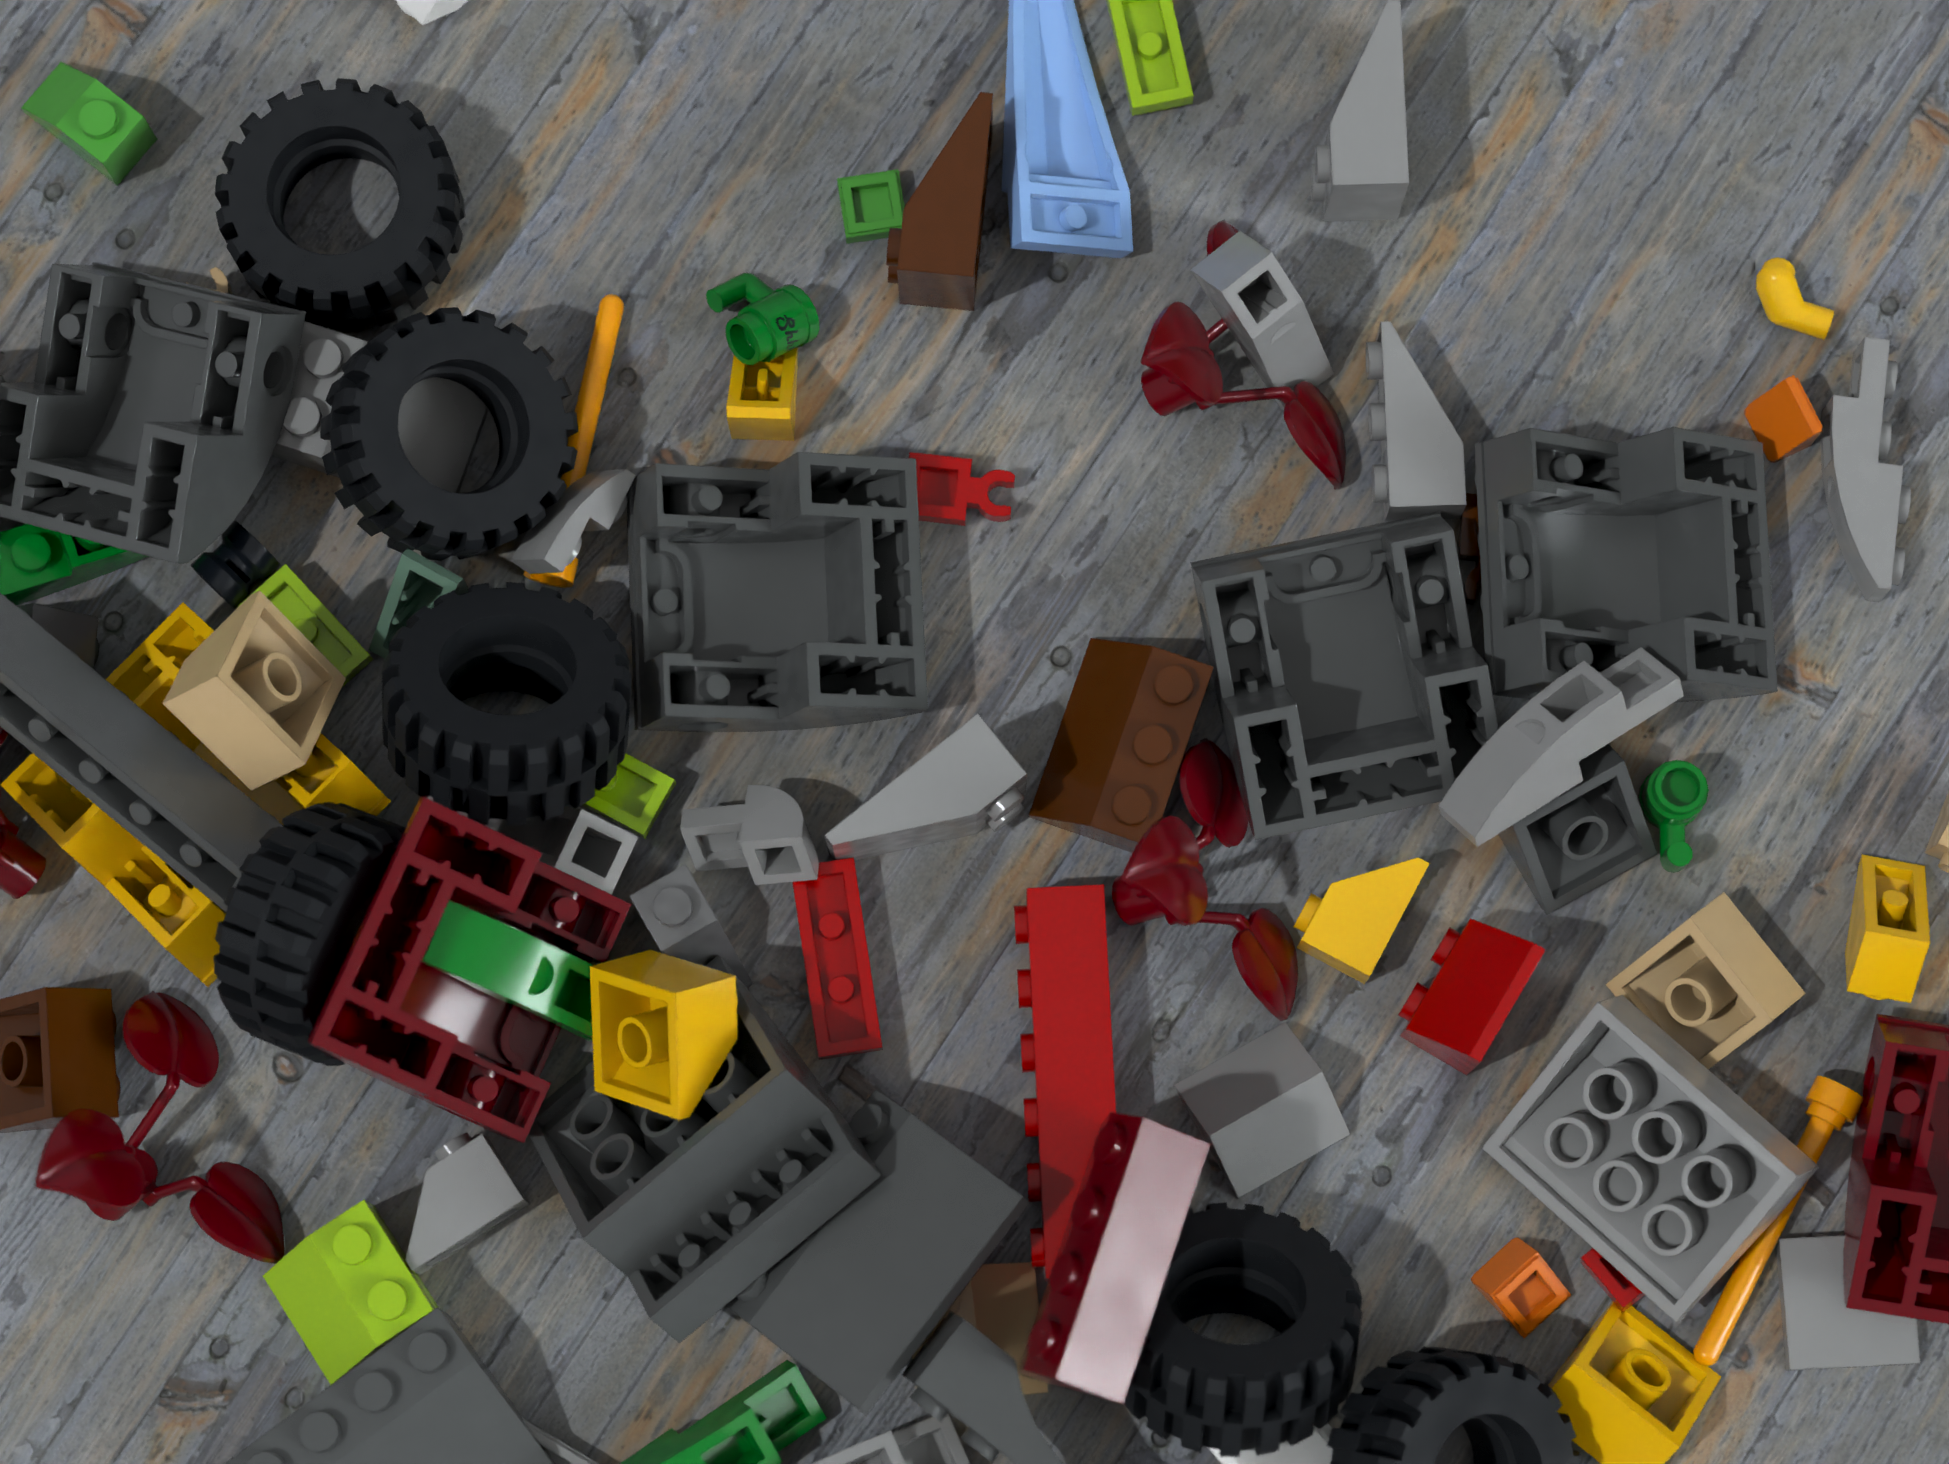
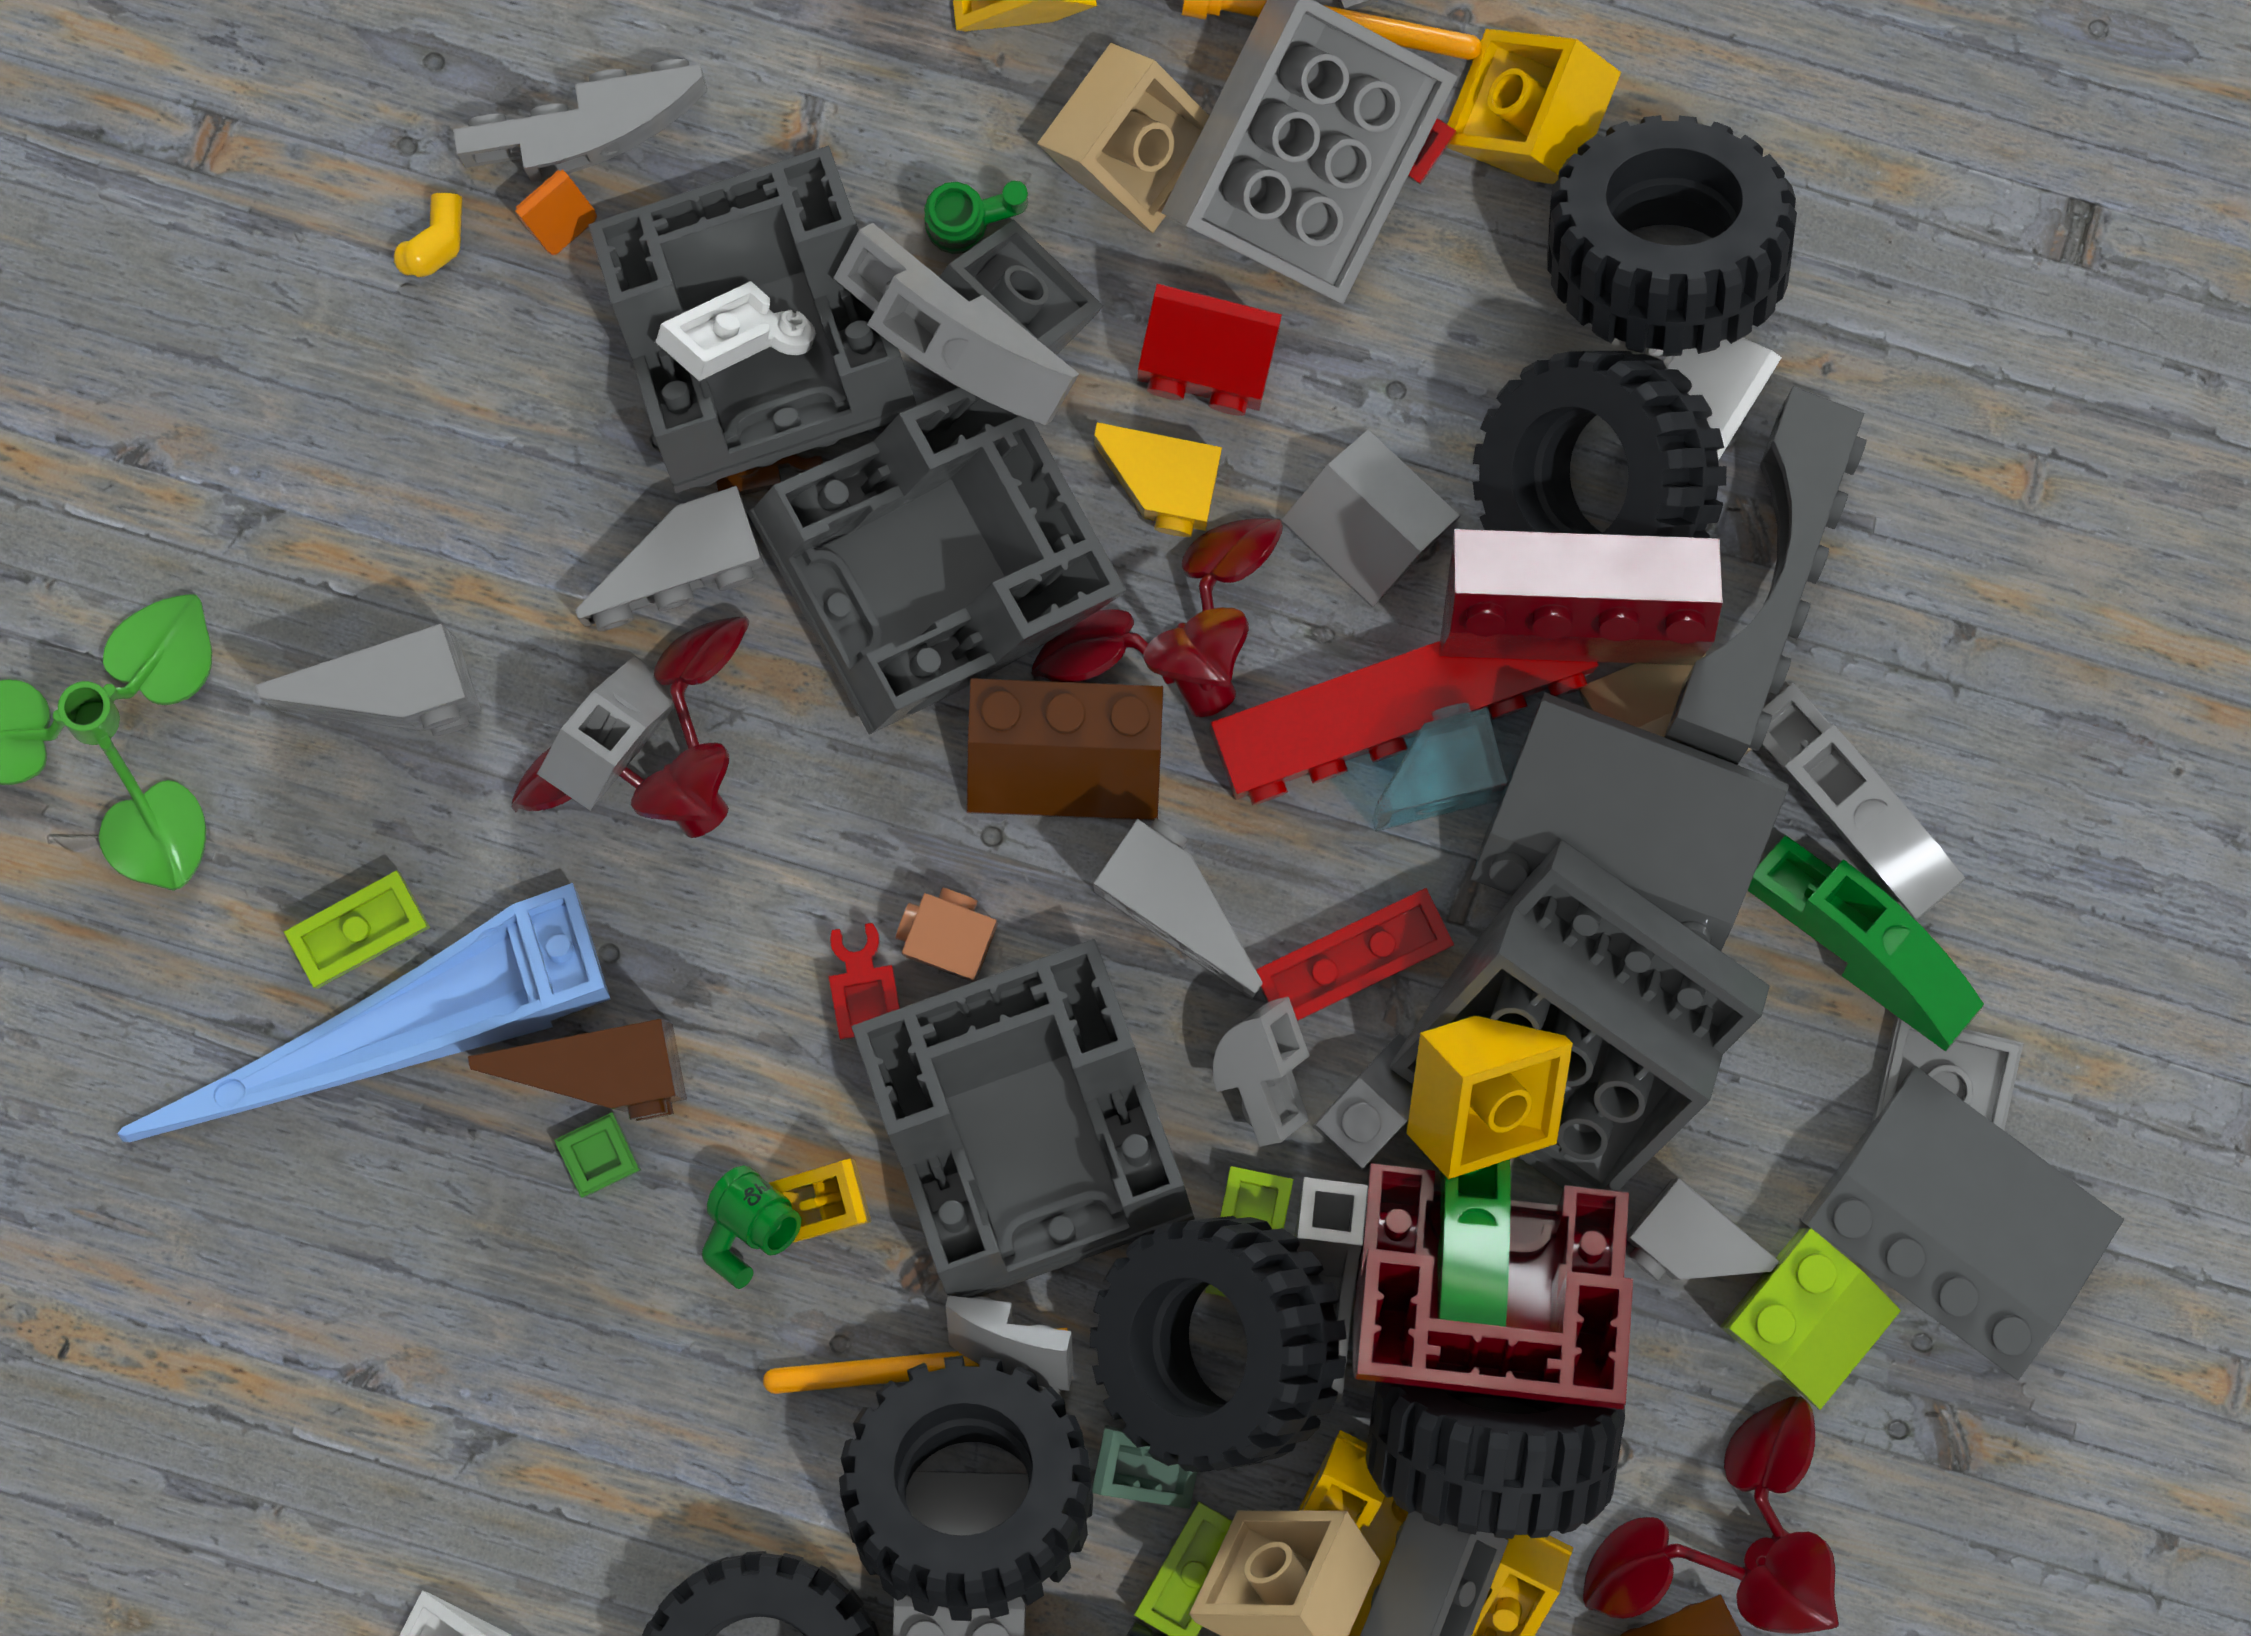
camera: 110 degrees left, 5 degrees up
(977, 581) = (947, 934): none -> nougat brick
(990, 1091) = (1445, 770): none -> clear light blue slope
(1520, 1286) = (1460, 234): orange slope -> none
(1618, 541) = (732, 330): none -> white hinge

